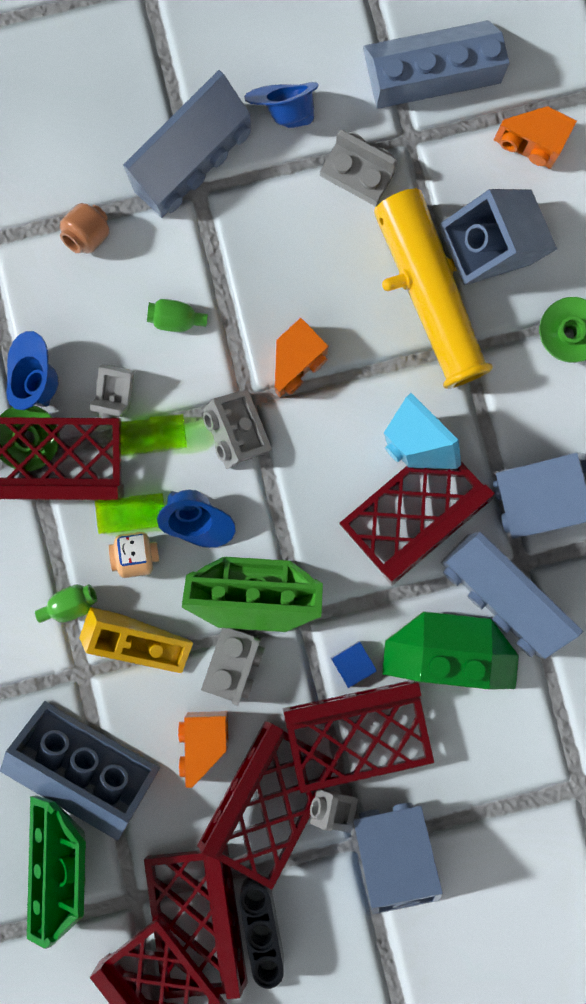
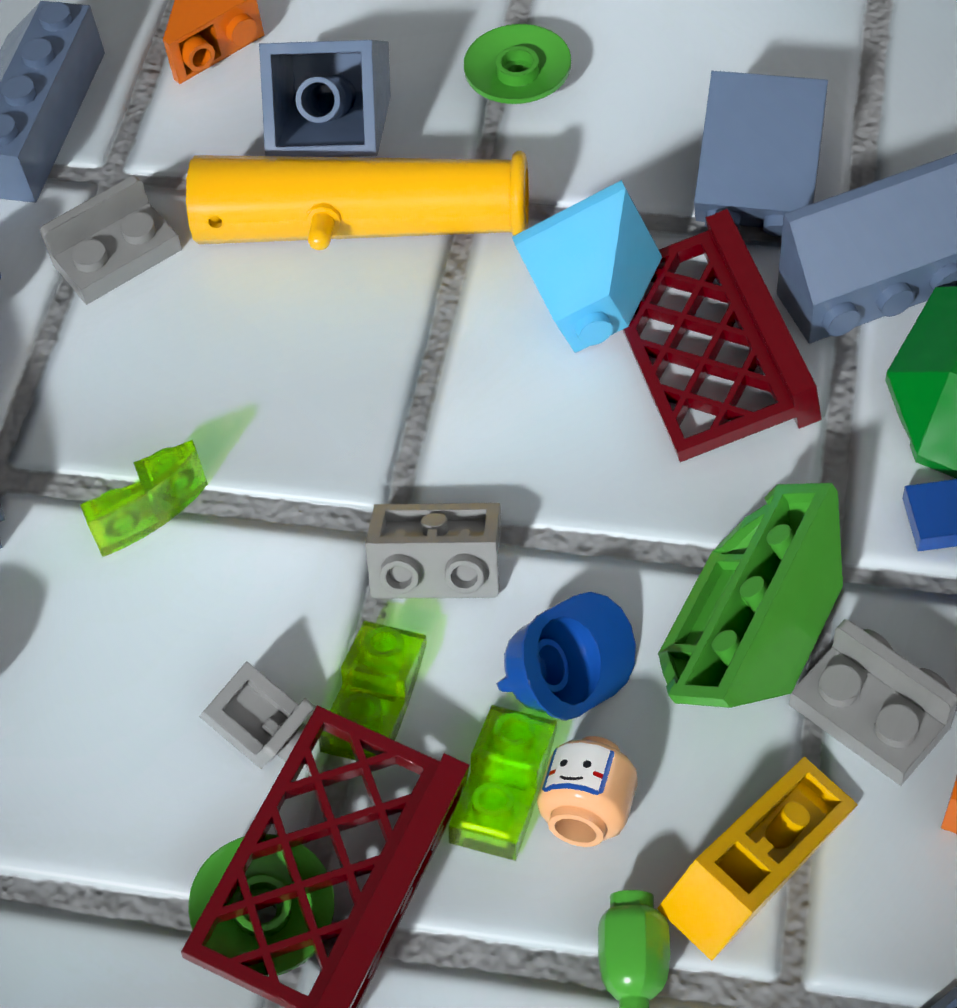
camera: 60 degrees left, 30 degrees down
(29, 374) = (137, 839): blue piece -> none
(174, 316) = (181, 576): bright green plant -> none
(214, 279) = (166, 487): none -> clear neon green slope
(296, 354) = (358, 415): orange slope -> none

